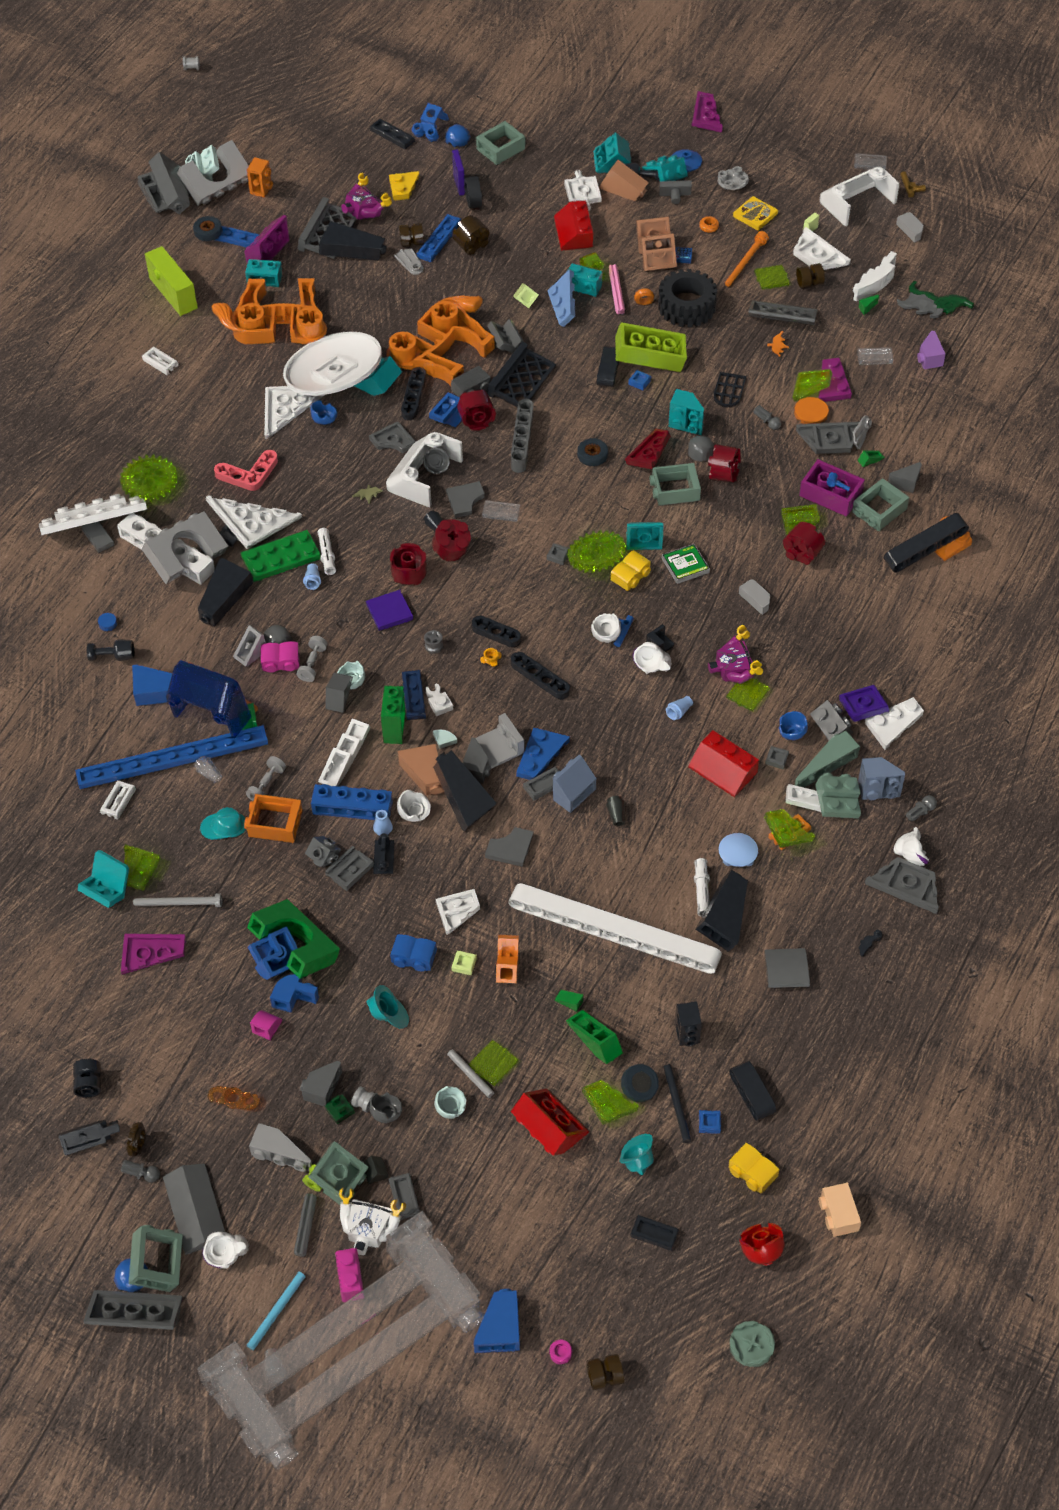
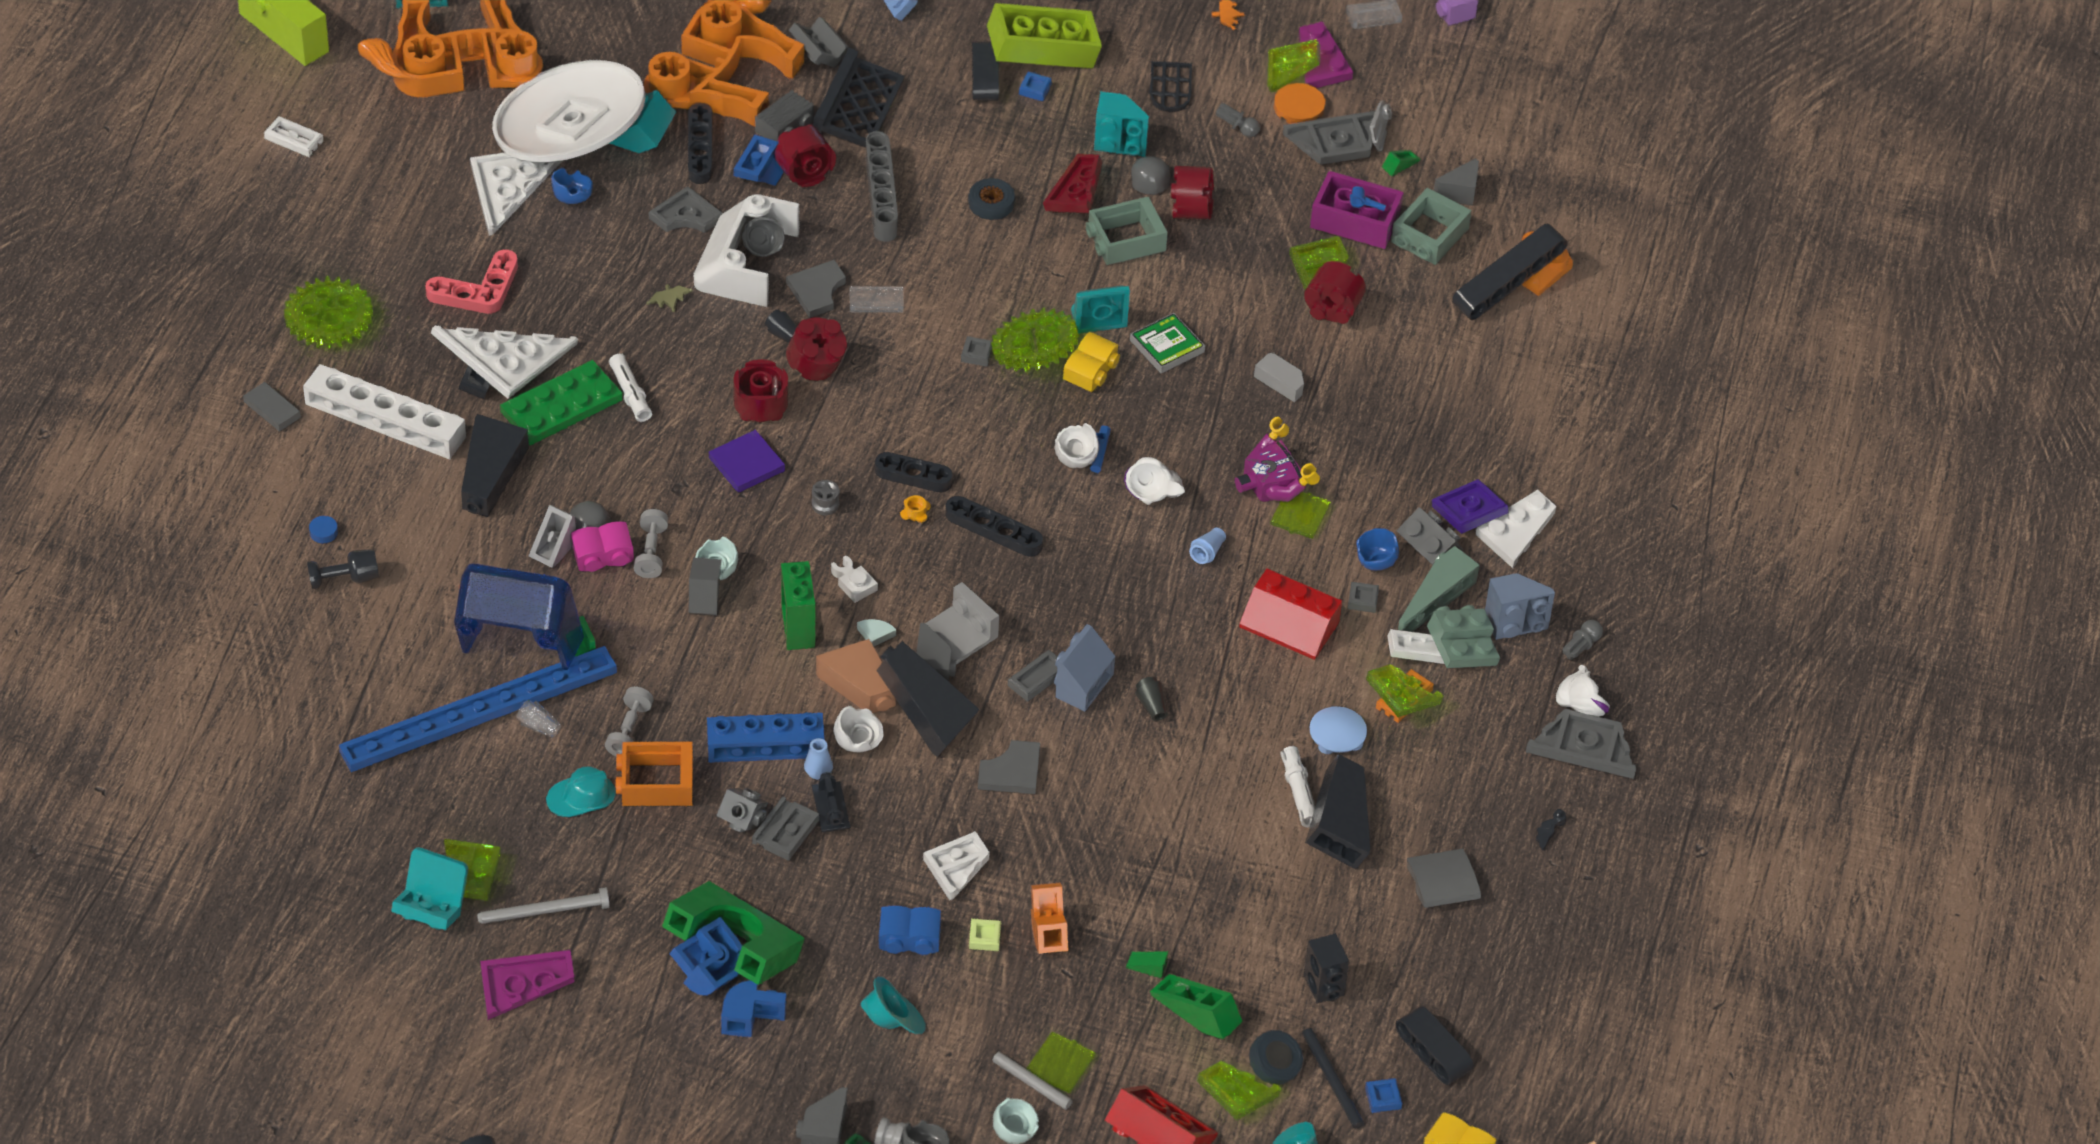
camera: 15 degrees left, 5 degrees down
(90, 513) = (256, 373): white plate -> none
(122, 804) = (408, 797): white tile -> none
(150, 685) = (421, 610): blue slope -> none
(197, 528) = (429, 376): light grey arch -> none
(265, 1024) = (720, 1057): dark pink brick -> none
(312, 578) = (619, 428): light blue cone -> none
(344, 754) = (735, 669): white slope -> none
(413, 695) = (823, 587): dark blue tile -> none
(539, 752) = (1021, 632): blue wing -> none
(615, 928) = (1189, 857): white beam -> none
(659, 638) = (1154, 449): black panel -> none

